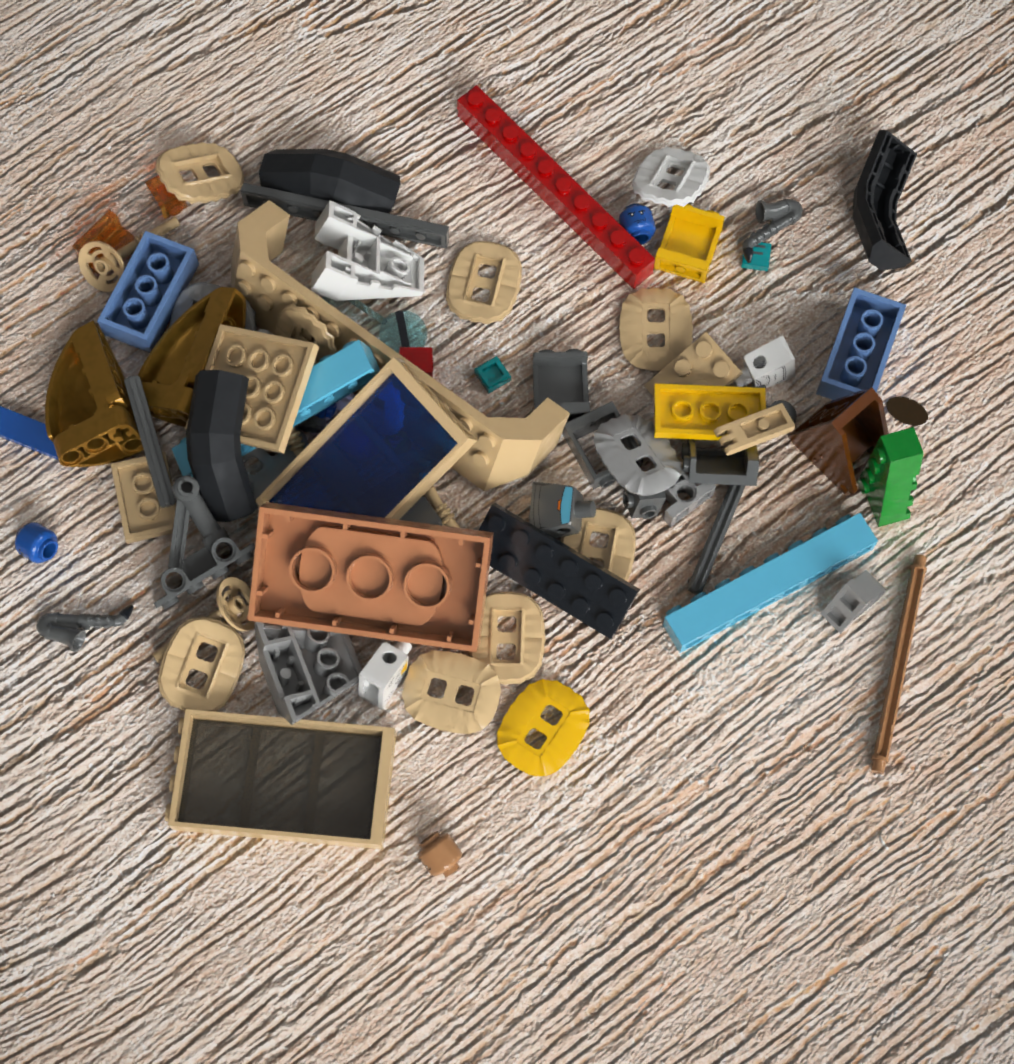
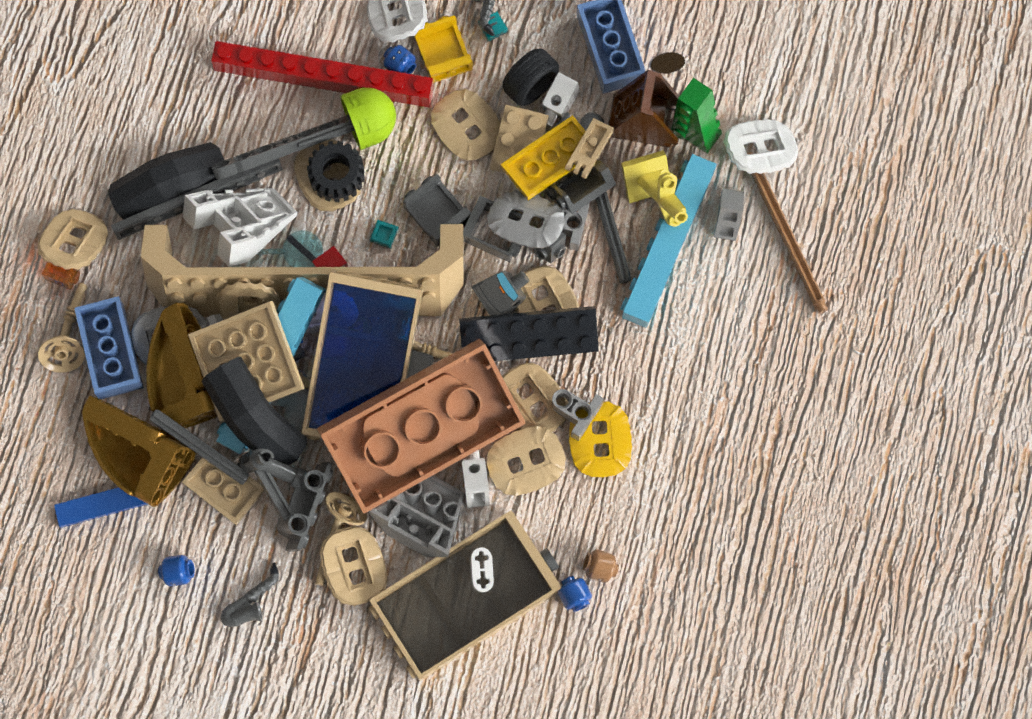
camera: 40 degrees left, 5 degrees up
(107, 230) = (42, 329): clear orange panel -> none
(310, 760) = (487, 570): none -> white beam
(391, 862) = (574, 594): none -> blue head
(394, 808) = (548, 558): none -> dark grey tile
(490, 260) = (336, 154): none -> black tyre
(540, 672) = (575, 404): none -> light grey tile
(562, 250) = (368, 117): none -> piece
(751, 322) = (530, 77): none -> black tyre
(796, 506) = (649, 178): none -> light yellow piece
(945, 542) = (756, 133): none -> white piece

